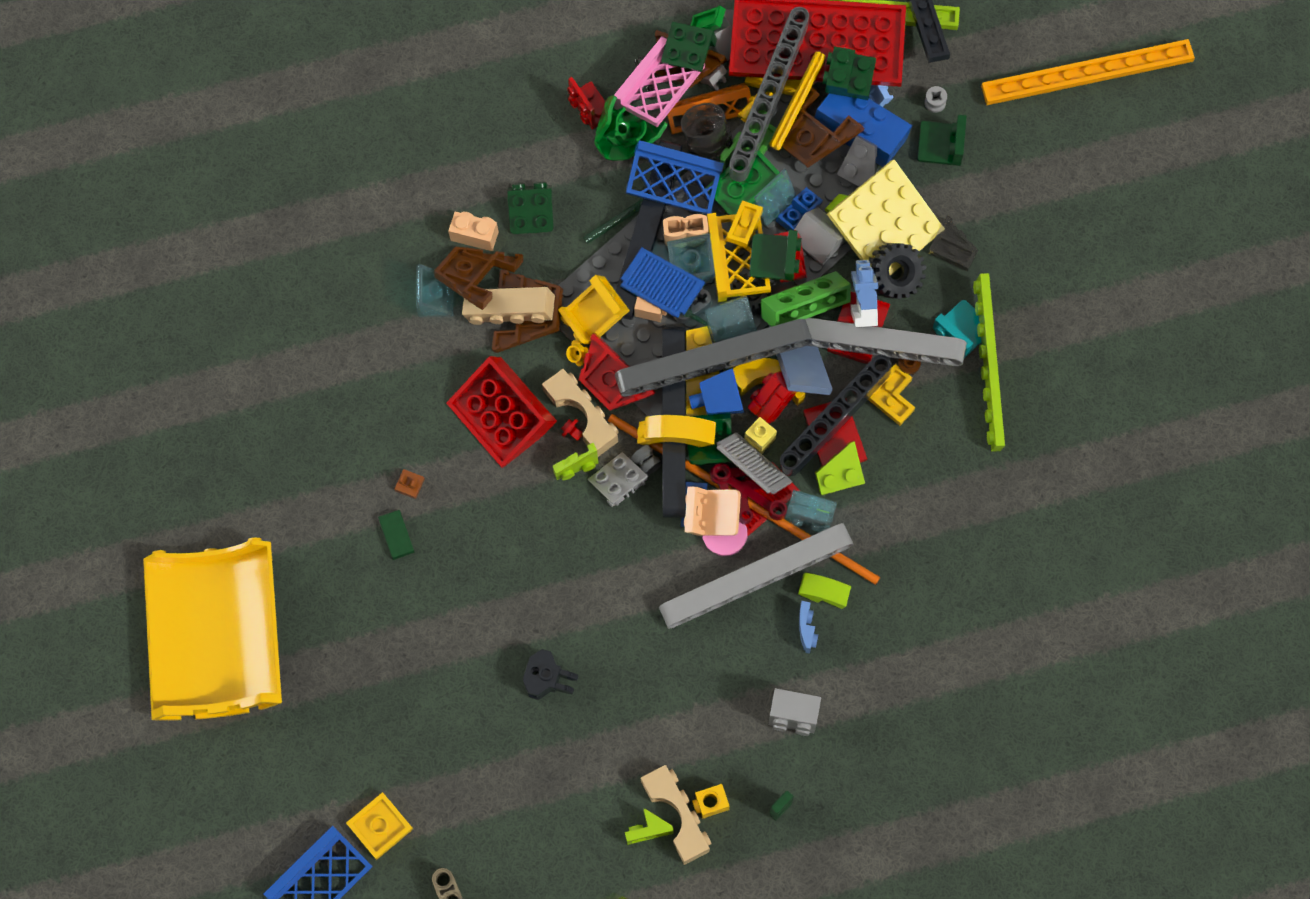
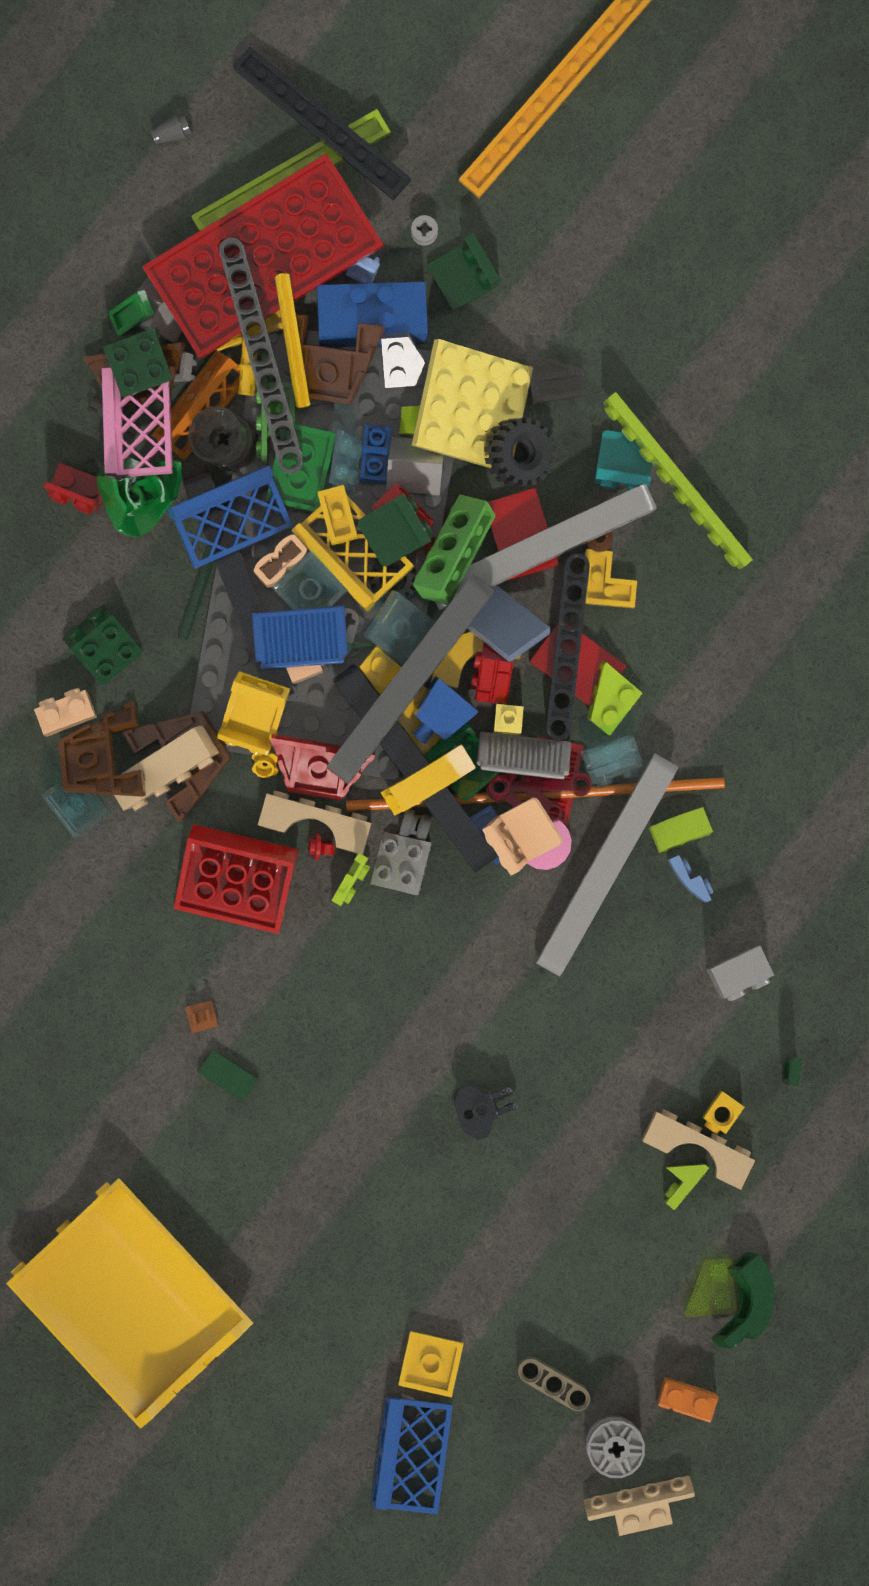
camera: 45 degrees left, 15 degrees up
(849, 73) = (325, 274): dark green plate -> none
(864, 284) = (518, 514): medium blue hips -> none

